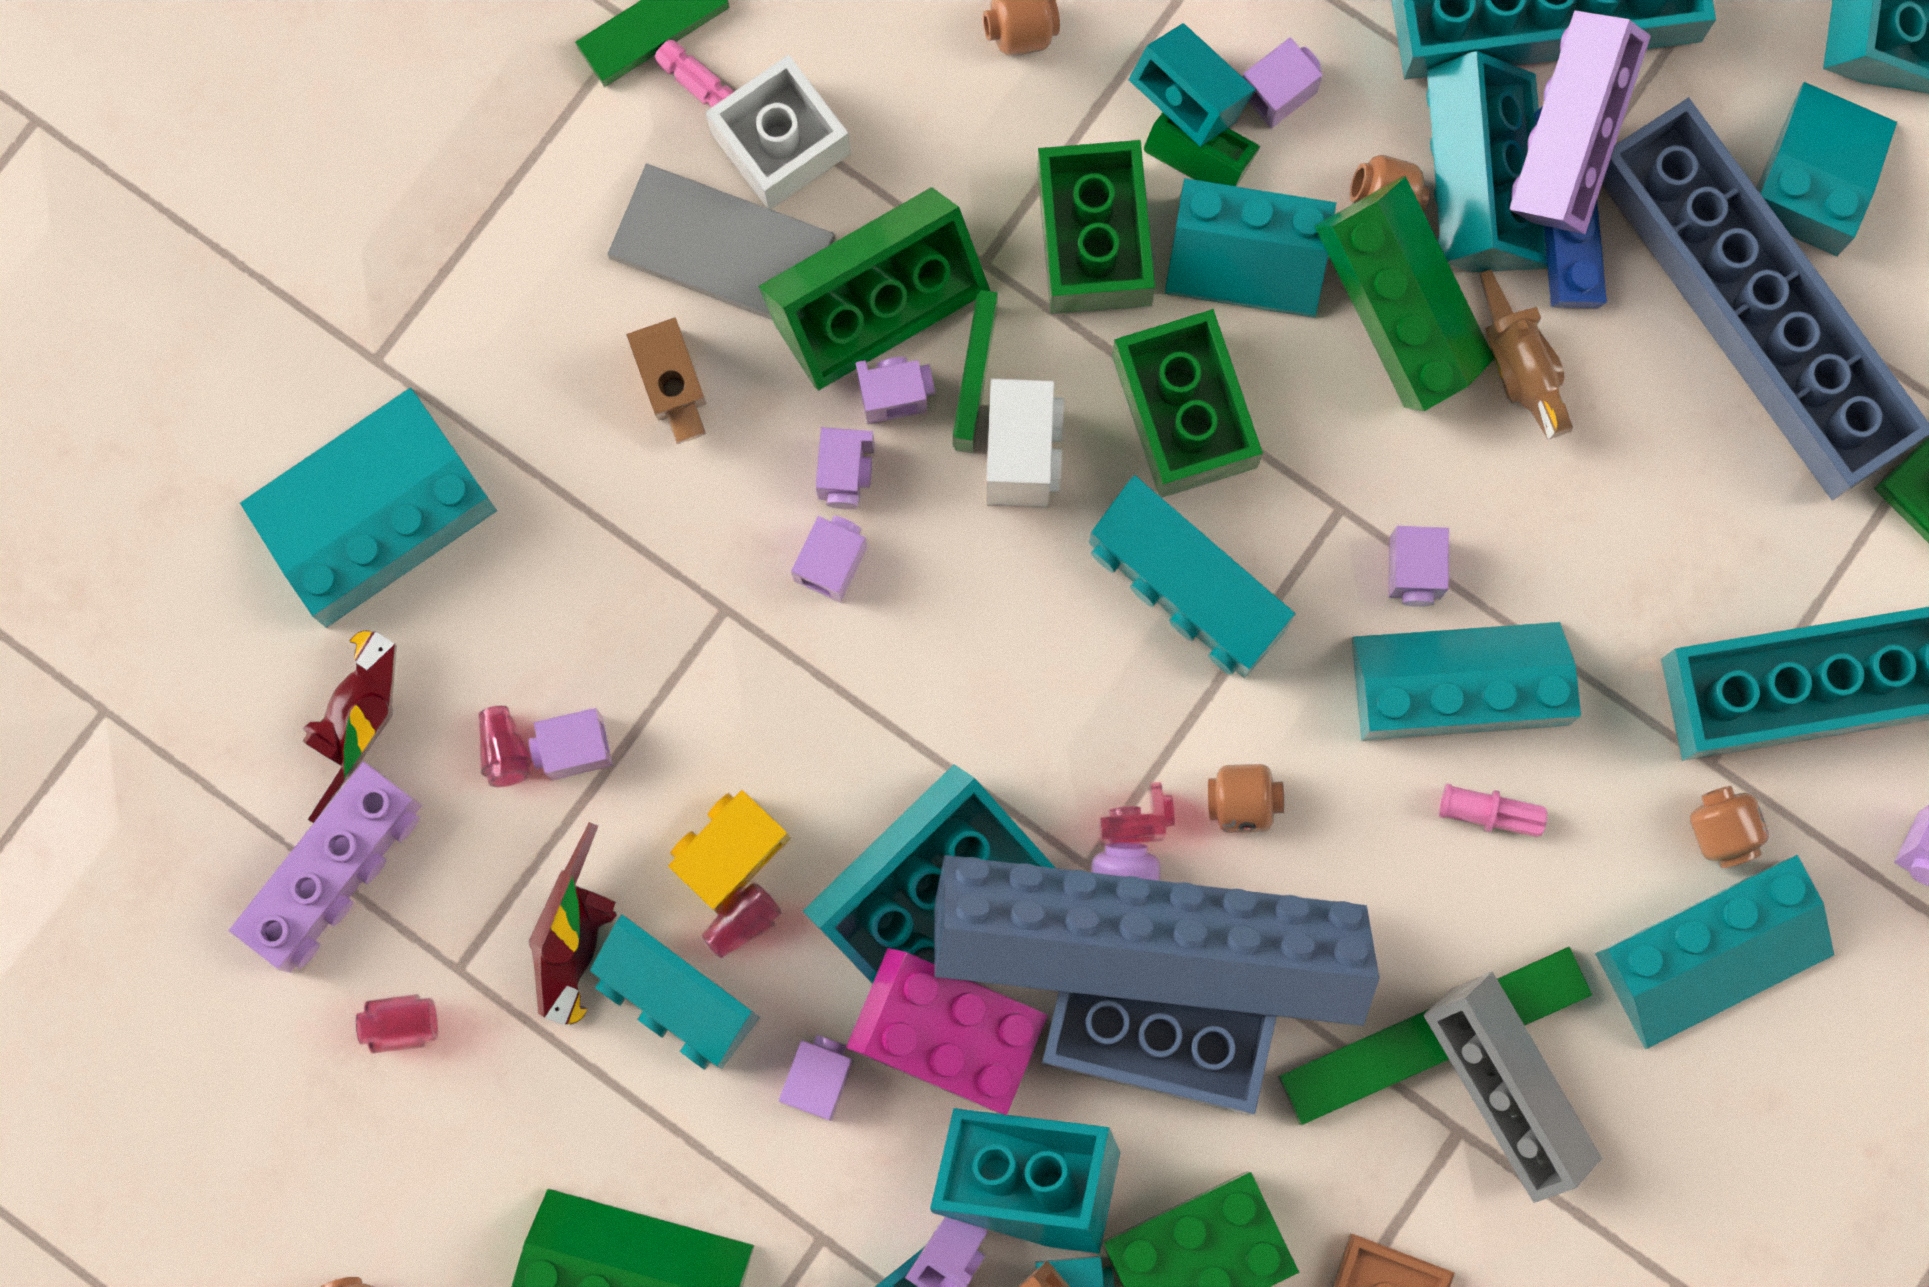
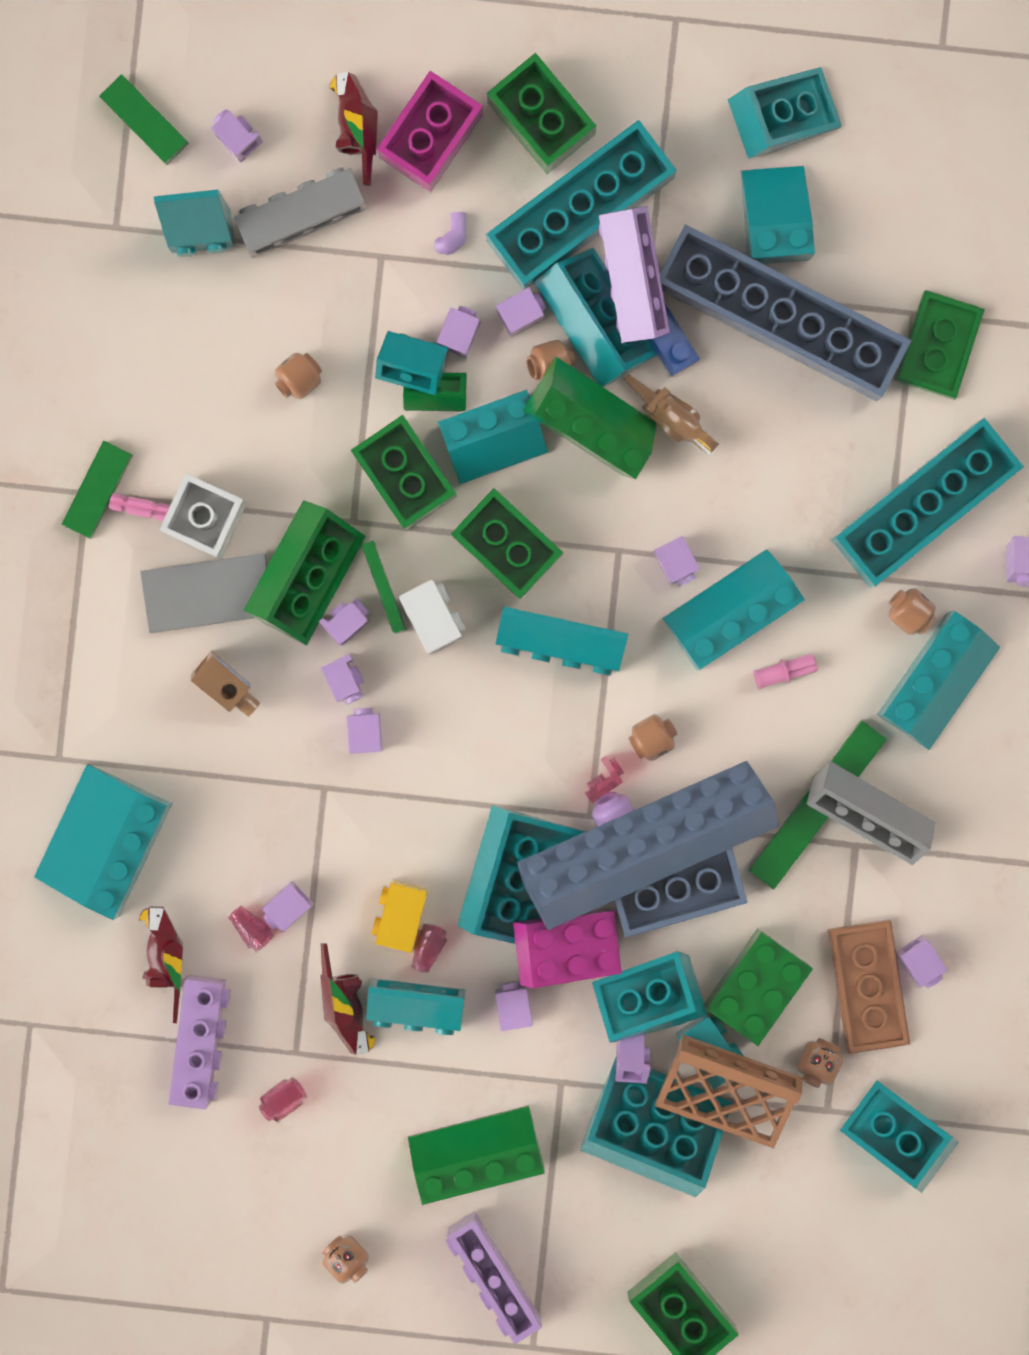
camera: 30 degrees left, 10 degrees up
(1385, 101) = (521, 311): none -> lavender brick

